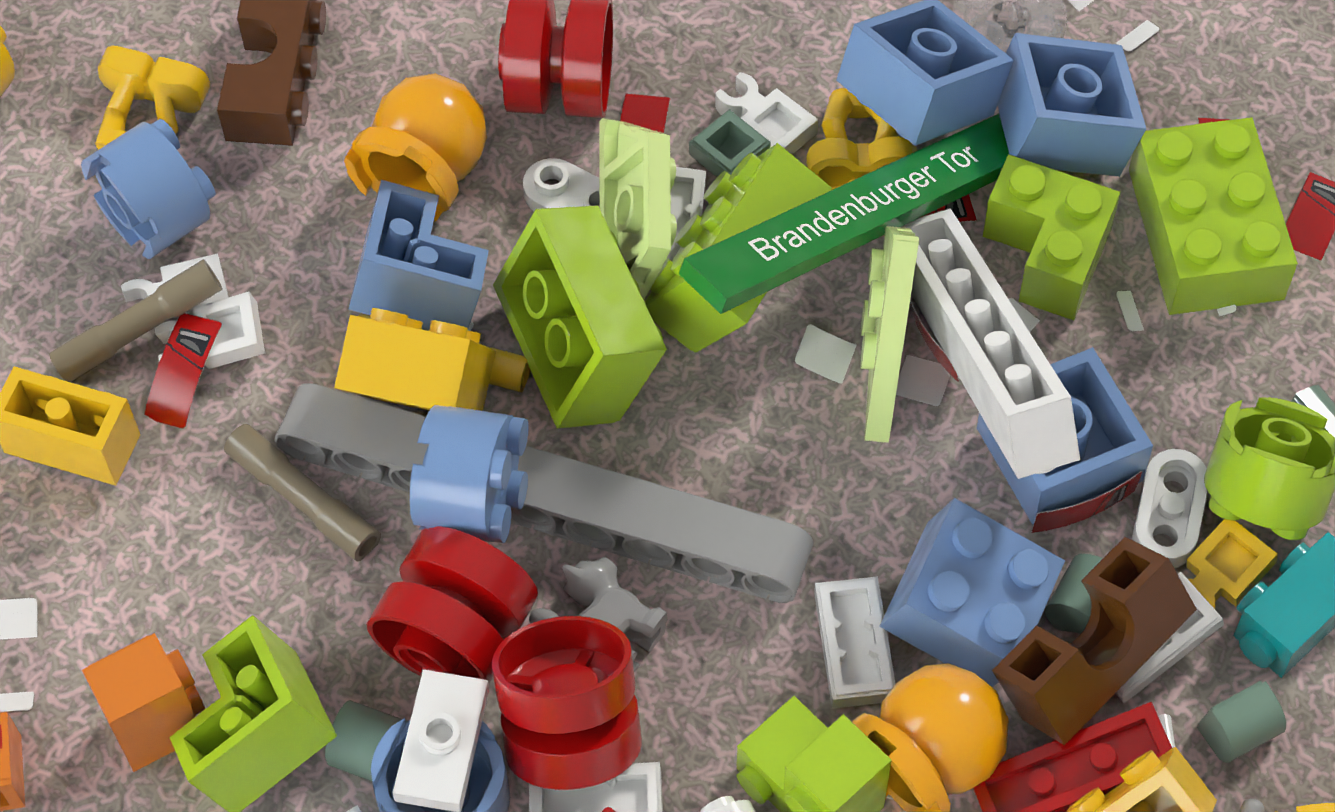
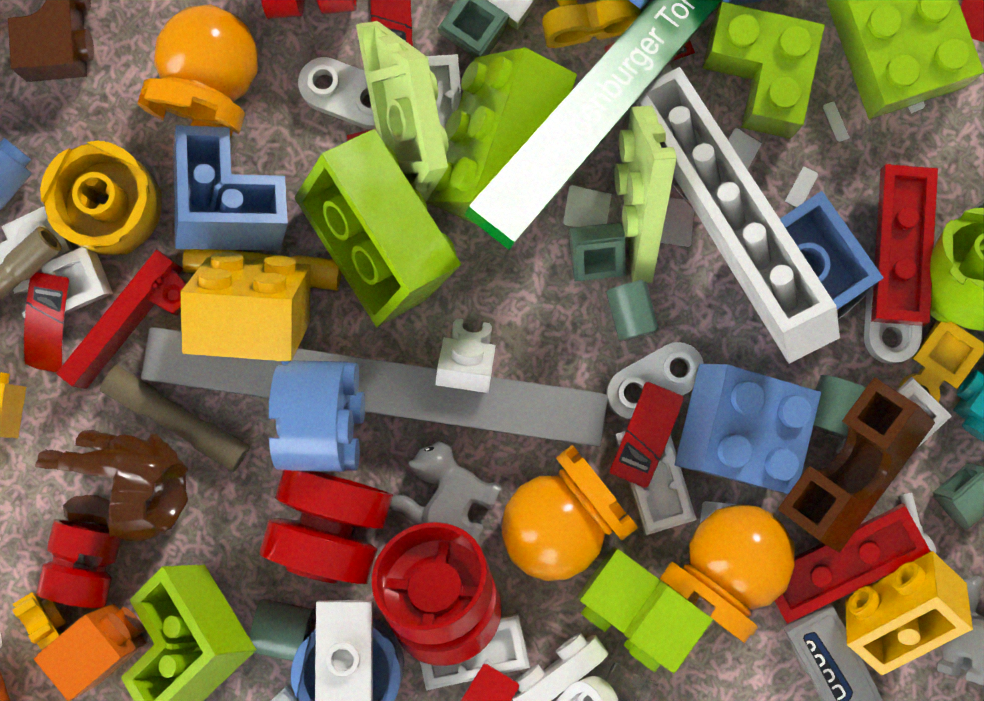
camera: 15 degrees left, 25 degrees up
(81, 651) = (39, 618): none -> yellow plate
(156, 601) = (76, 582): none -> red wheel
(227, 557) = (135, 469): none -> reddish brown piece
(281, 249) = (102, 168): none -> yellow brick
(304, 350) = (154, 284): none -> red hinge
(653, 466) = (466, 359): none -> white plate
(730, 655) = (560, 521): none -> light orange tile
(828, 391) = (597, 251): none -> sand green brick
(850, 587) = (647, 435): none -> red sticker
(858, 458) = (632, 310): none -> sand green brick
(876, 543) = (656, 370): none -> white plate
(1187, 431) = (905, 244): none -> red hinge

